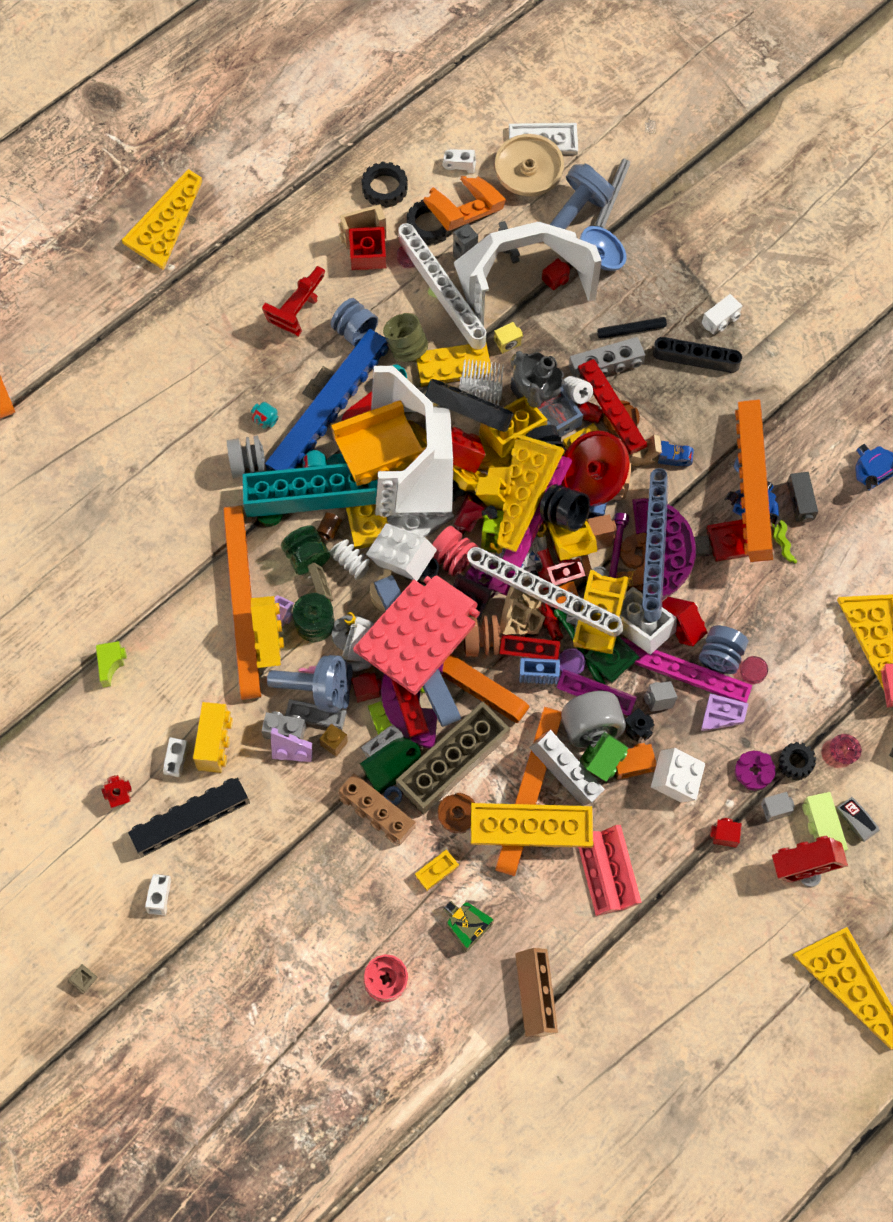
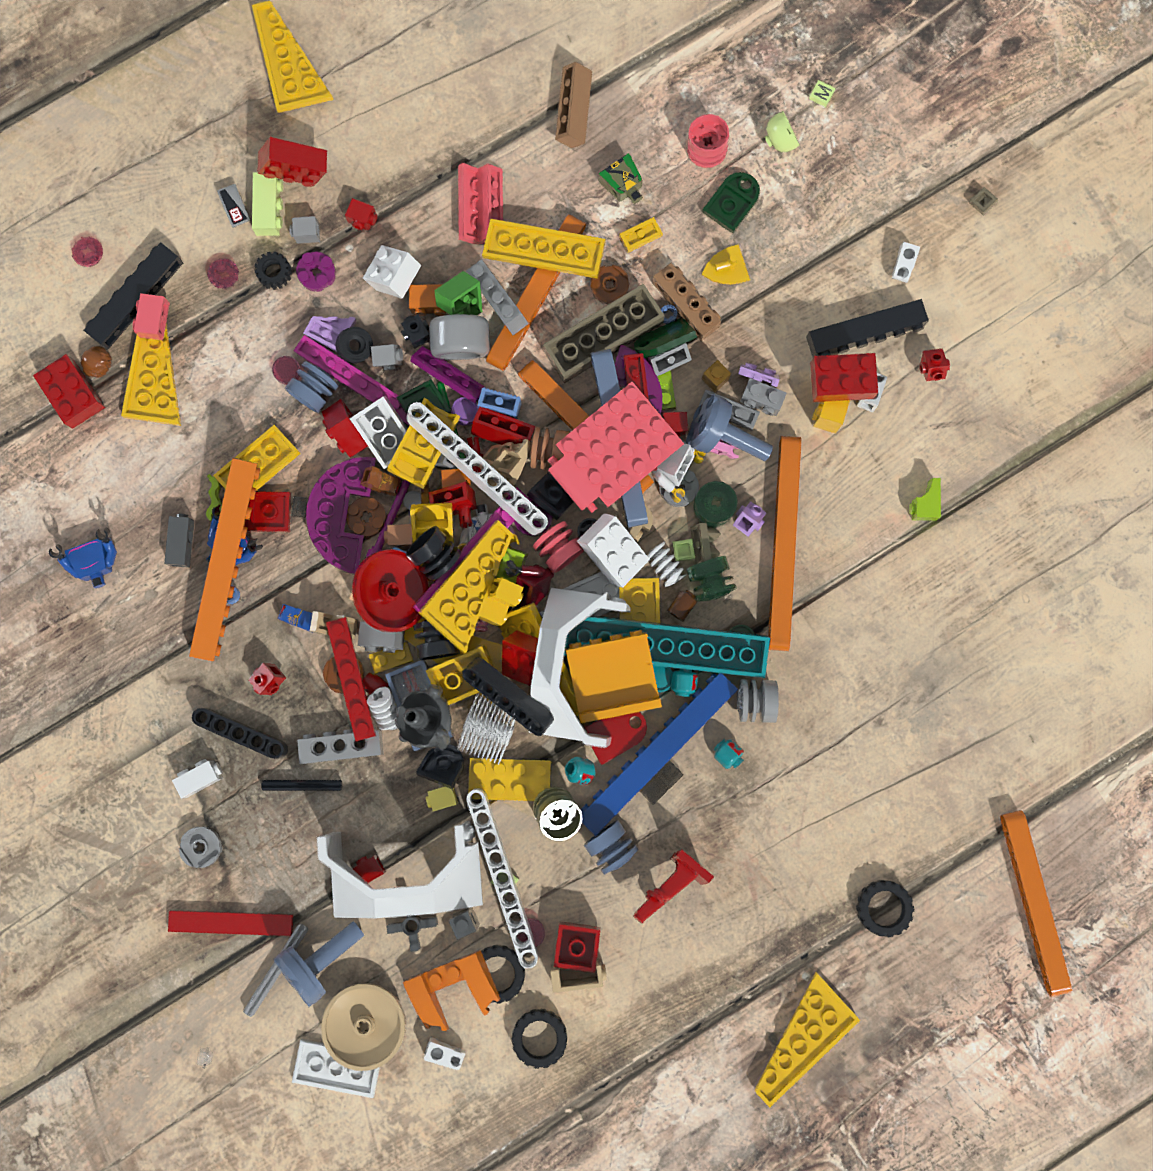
camera: 165 degrees left, 15 degrees up
(107, 308) = (863, 908): none -> black tyre
(207, 738) = (844, 377): none -> red brick
(266, 631) = (765, 489): yellow wedge -> none
(271, 1068) = (822, 93): none -> yellowish green tile
(308, 1006) = (781, 134): none -> yellowish green cylinder
(336, 578) = (683, 550): none -> yellowish green tile
(341, 858) = (727, 267): none -> yellow shield
(348, 926) = (732, 202): none -> dark green tile
(504, 355) = (442, 766): none -> black tile
(608, 245) = (307, 889): medium blue dish -> none
(657, 502) = (355, 496): sand blue beam -> none
(660, 219) = (230, 923): none -> red tile
(686, 398) = (266, 679): none -> red brick
(689, 691) = (365, 343): none -> black tyre
(699, 275) = (189, 844): none -> light grey plate
(751, 580) = (270, 451): none -> yellow plate

